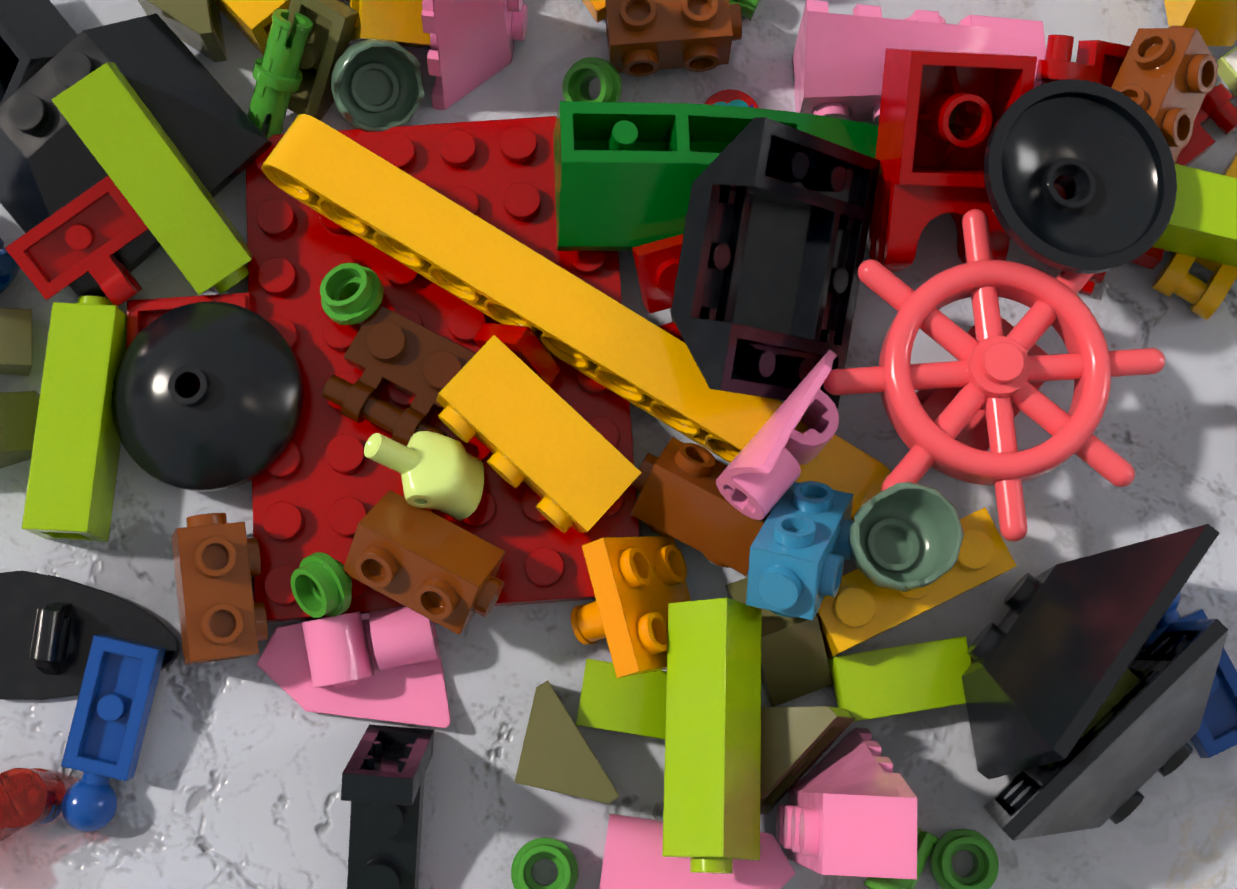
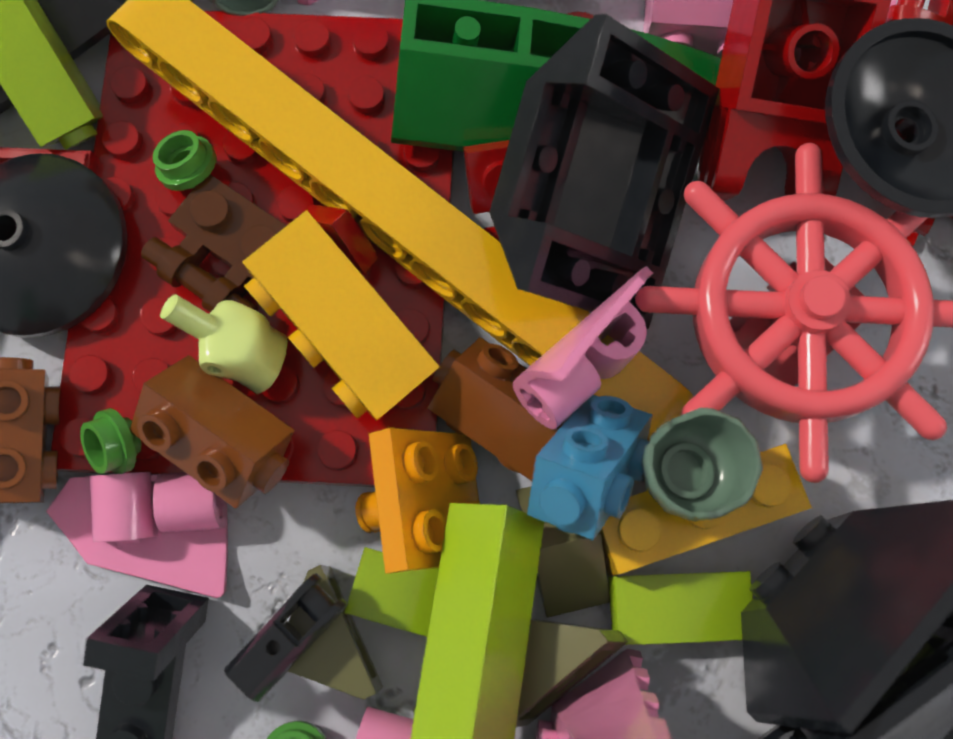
camera: 10 degrees right, 0 degrees up
(520, 762) = (279, 644): none -> black bar

